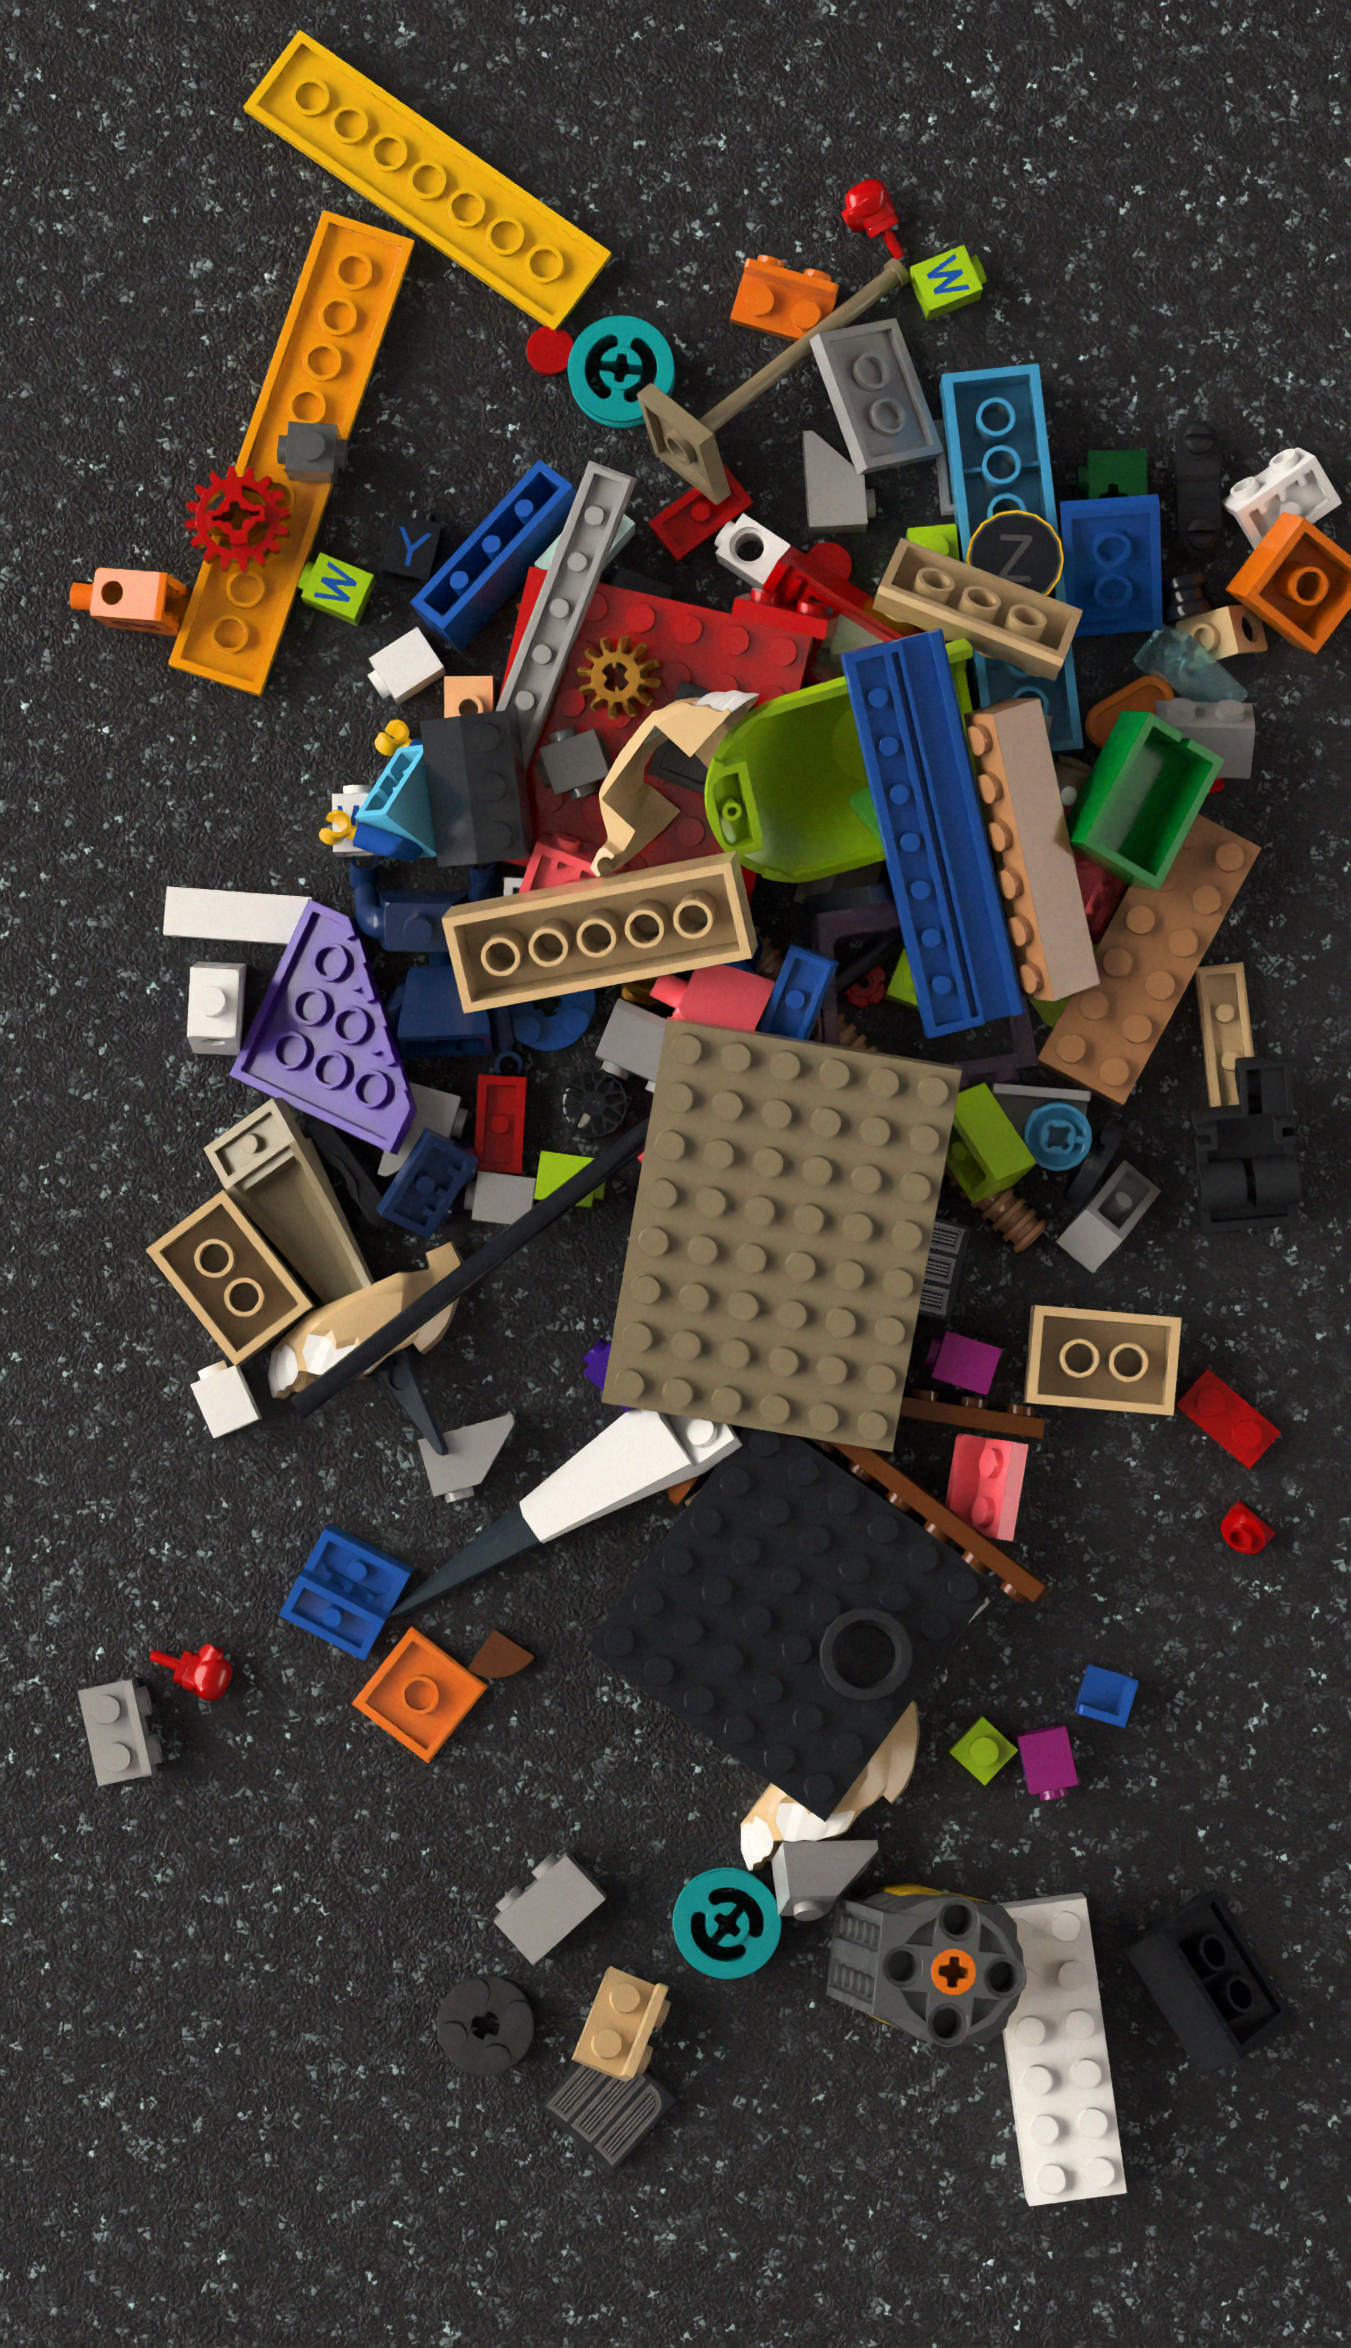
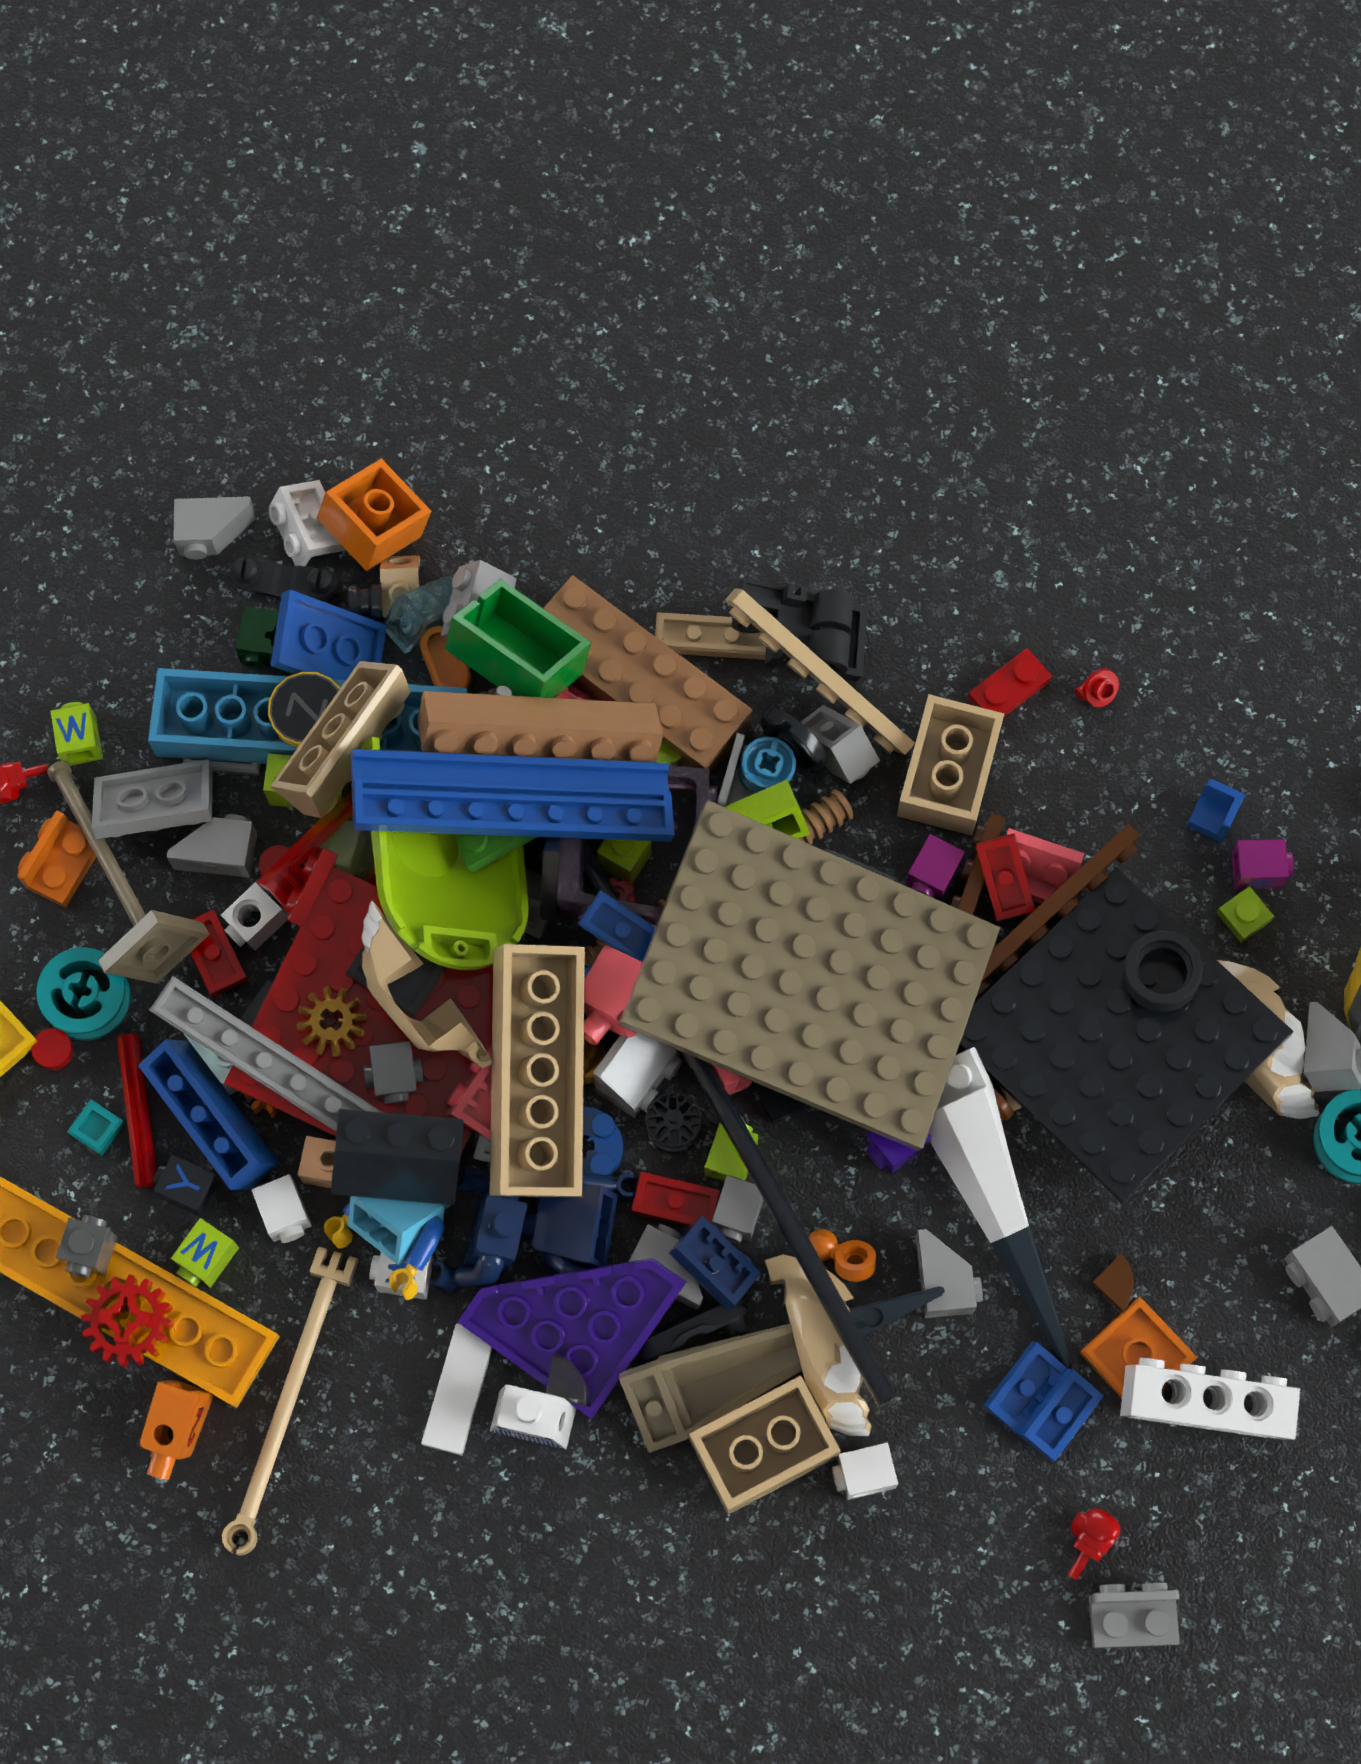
camera: 80 degrees left, 15 degrees down
(197, 723) = (329, 1276): none -> tan hinge
(260, 1038) = (567, 1381): none -> clear smoke tile
(363, 1853) = (1272, 1413): none -> white brick
(466, 426) = (96, 1127): none -> teal tile
(481, 1307) = (853, 1259): none -> orange plate
(495, 469) = (137, 1110): none -> red axle
(963, 1449) = (1005, 877): none -> red plate
(1188, 1159) = (806, 662): none -> tan plate
(1253, 378) = (209, 524): none -> light grey slope

